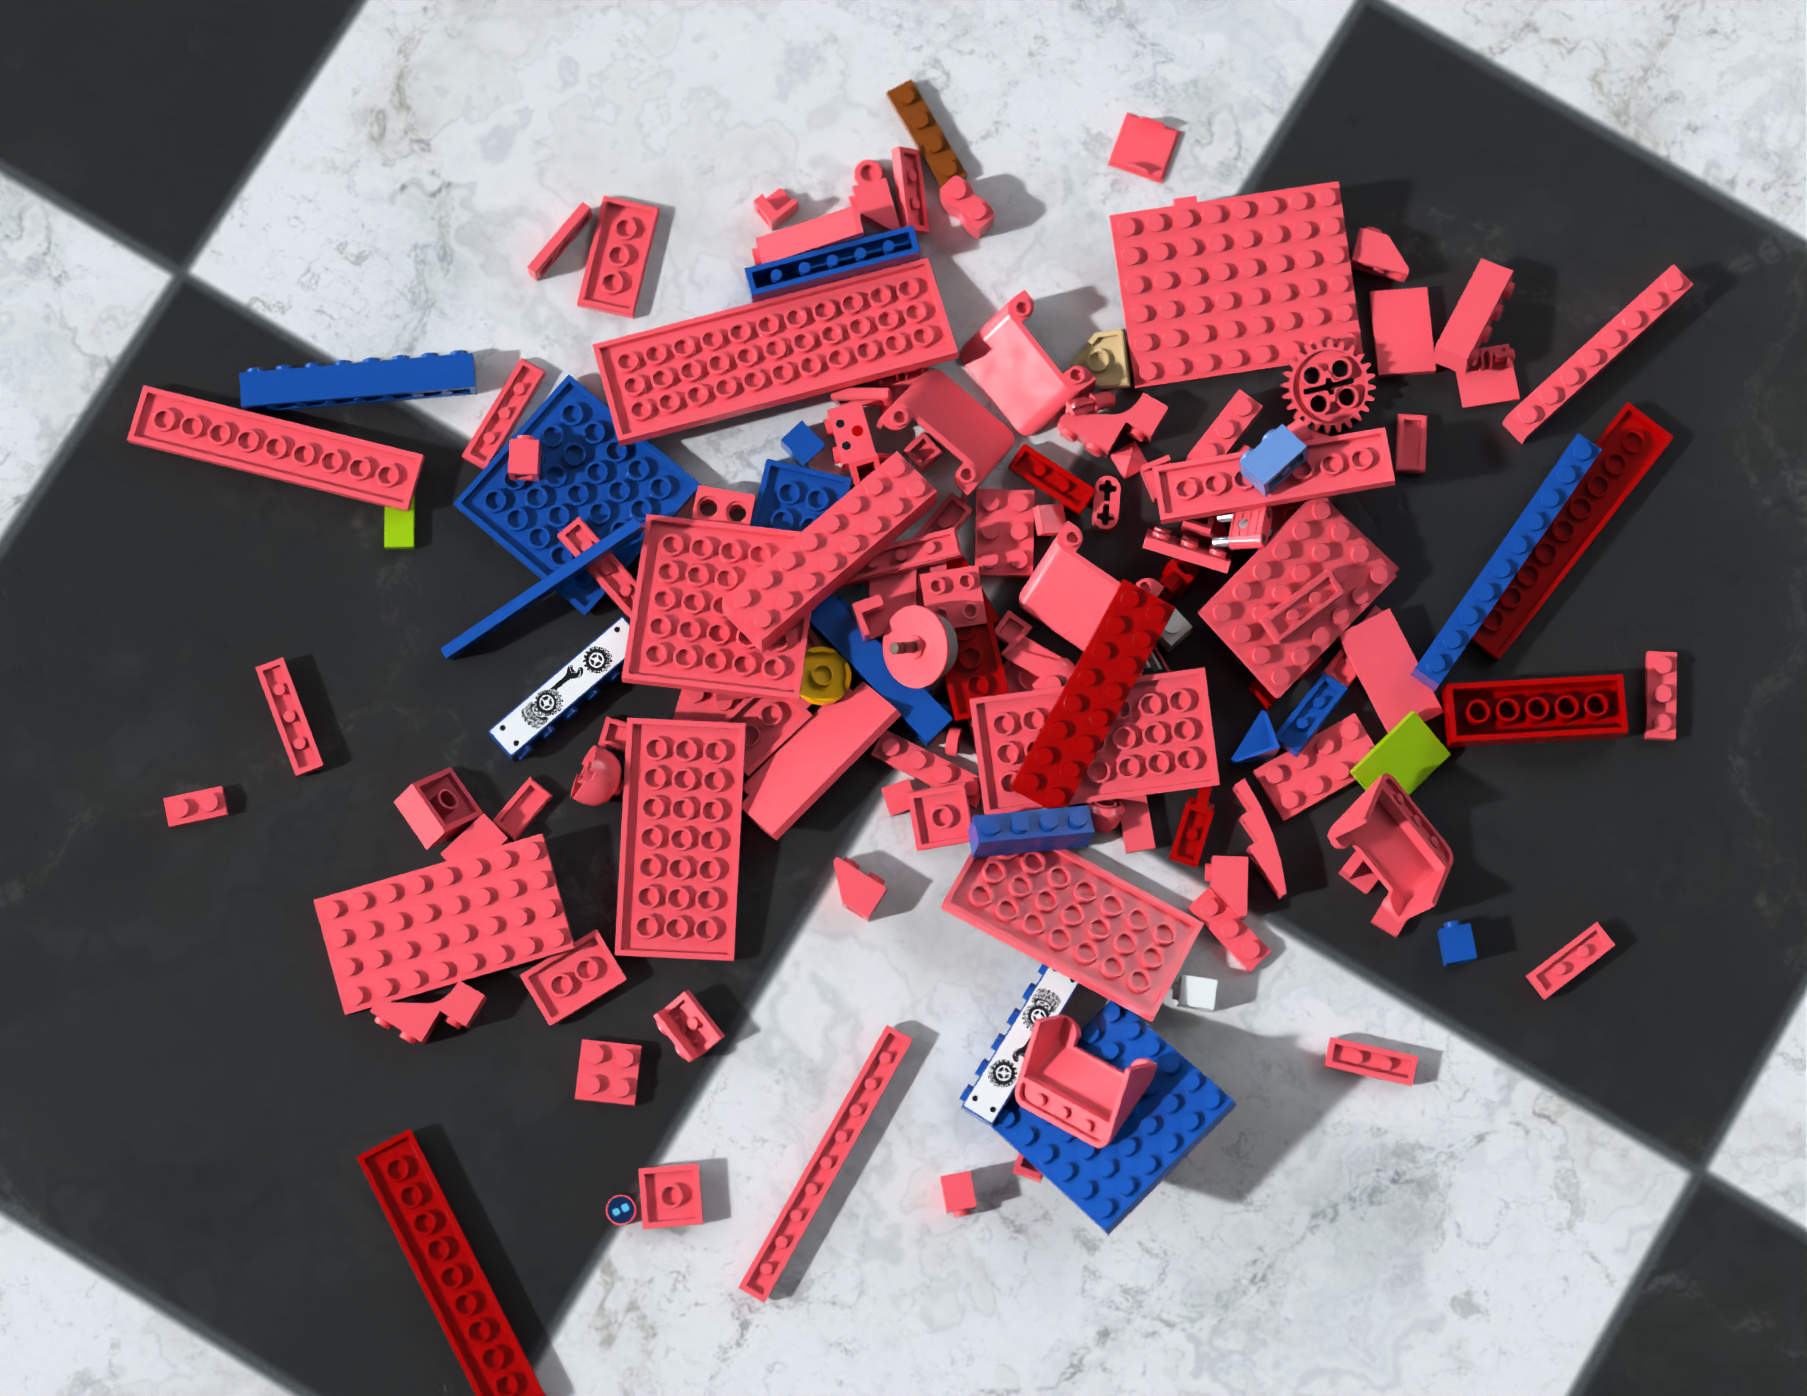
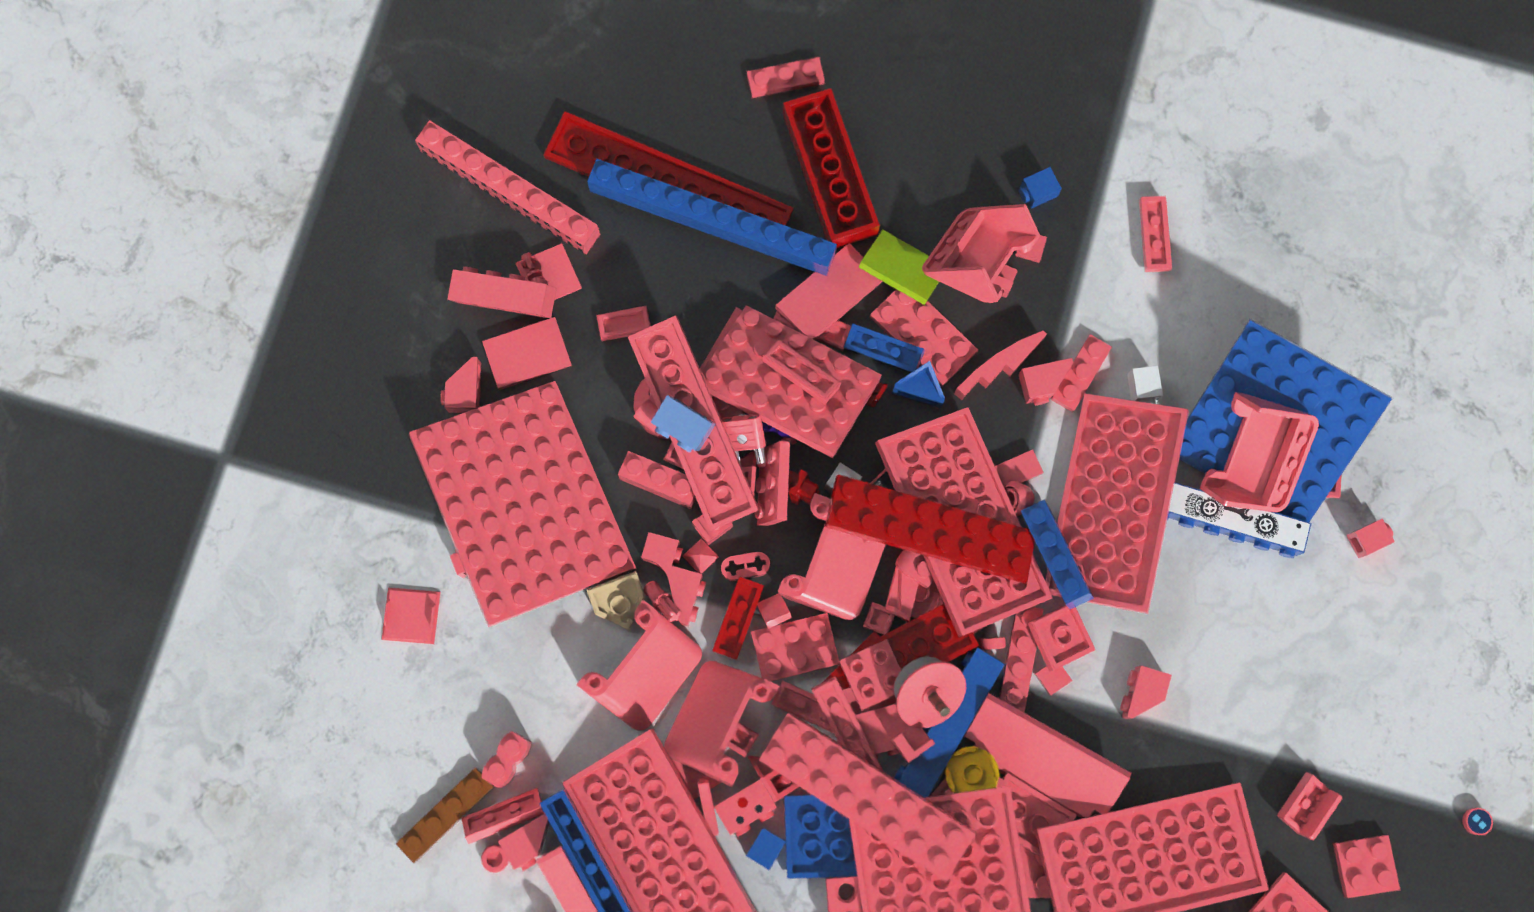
camera: 105 degrees left, 0 degrees up
(670, 1196) = (1454, 781): coral plate -> none
(825, 1164) = (1383, 656): coral plate -> none
(1193, 829) = (1009, 422): red hinge -> none
(1322, 360) = (572, 410): coral gear -> none
(1570, 960) = (1025, 98): coral plate -> none

